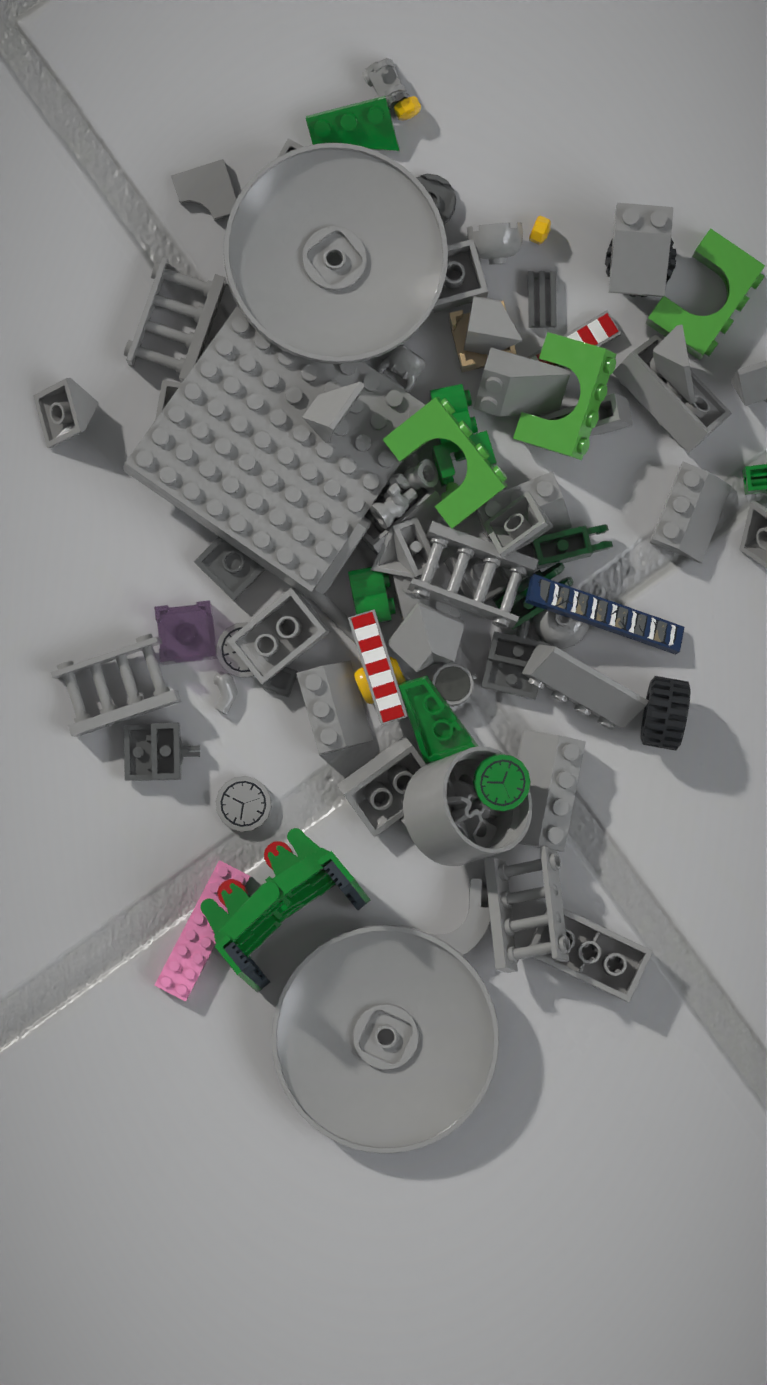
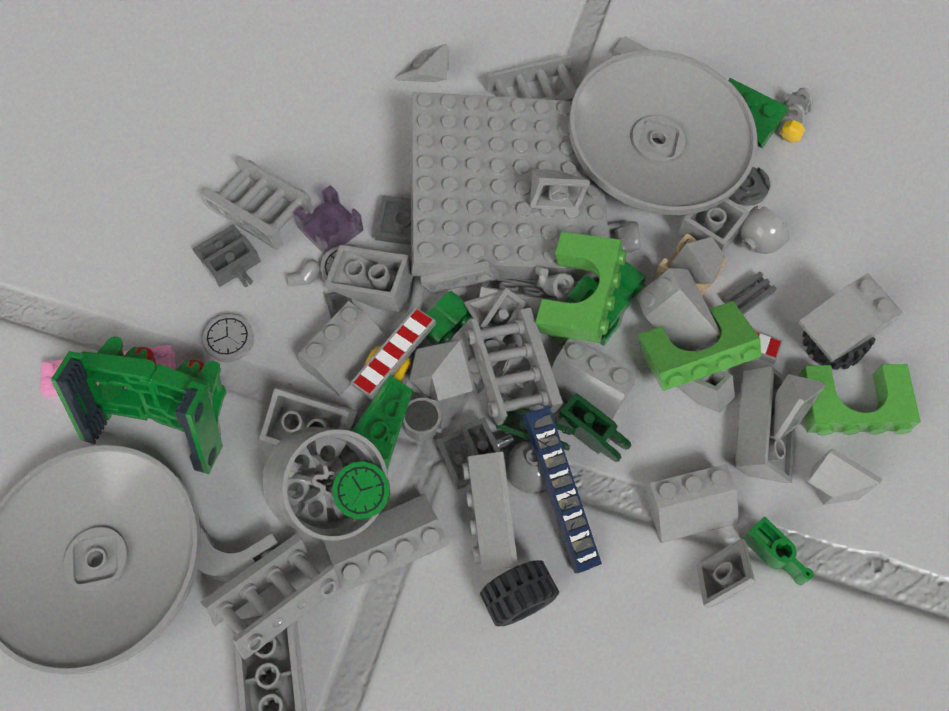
camera: 55 degrees right, 20 degrees down
(393, 506) = (521, 281): light grey piece -> none
(517, 525) = (577, 372): light grey slope -> none
(540, 230) = (794, 259): yellow tile -> none

